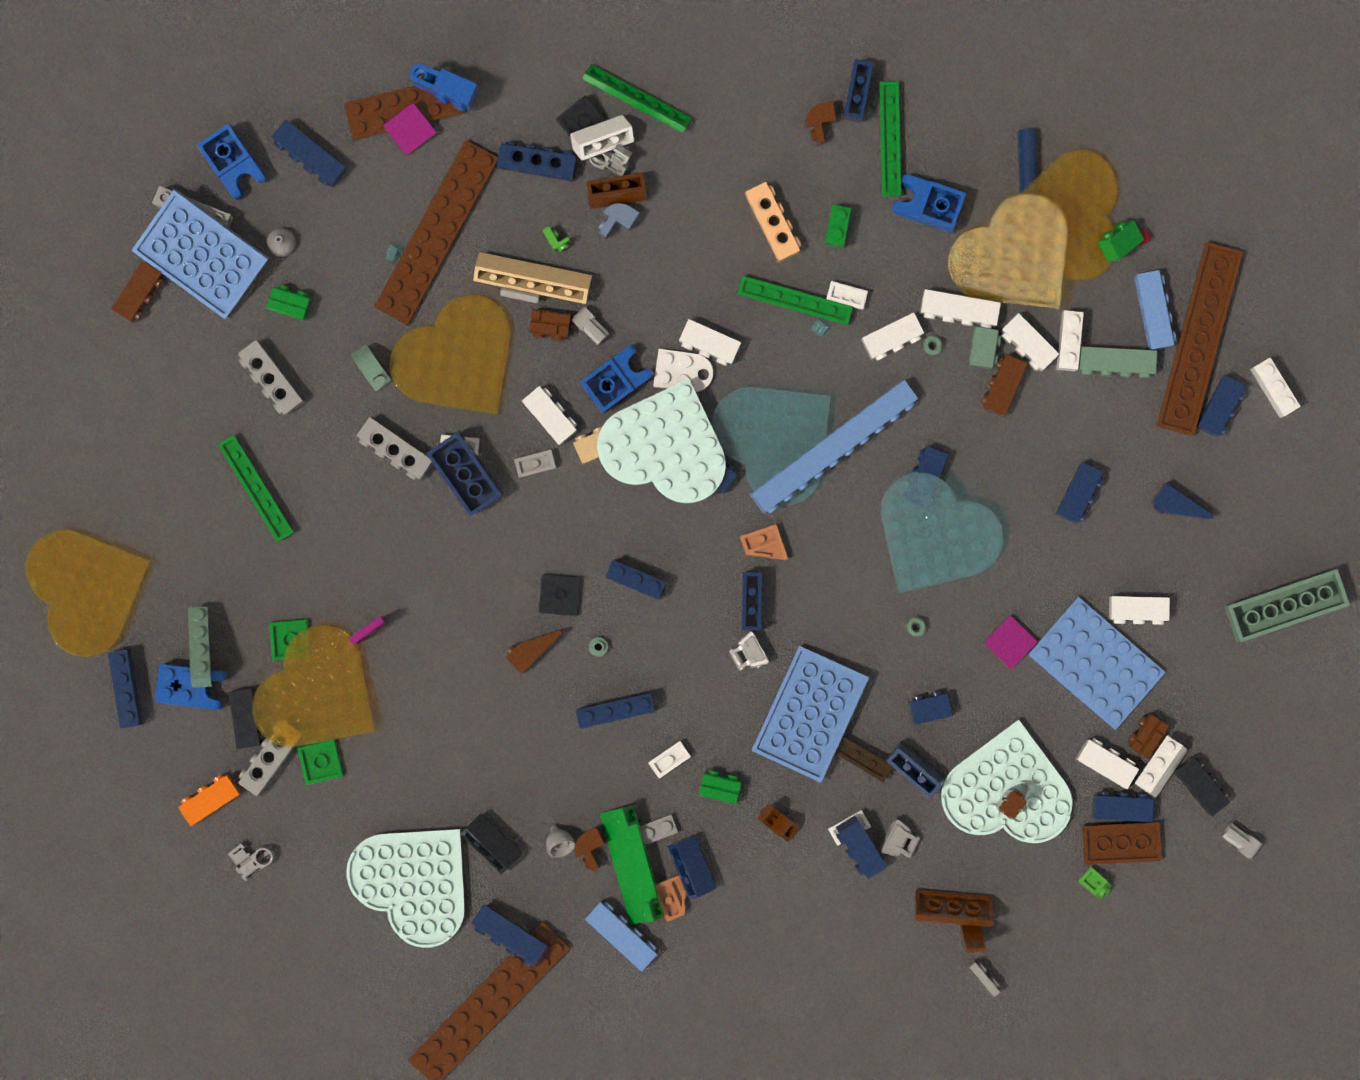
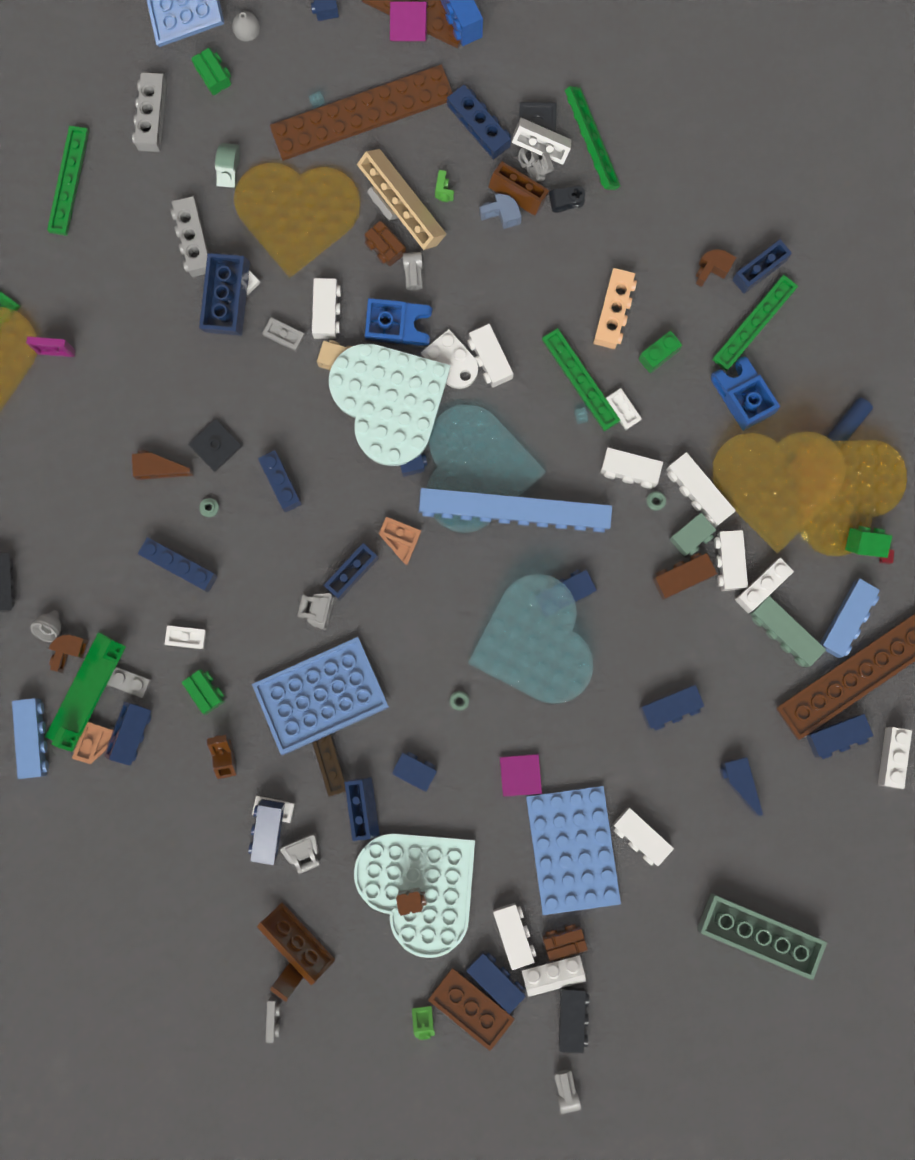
camera: 45 degrees right, 5 degrees down
(657, 168) = (564, 198): none -> black piece

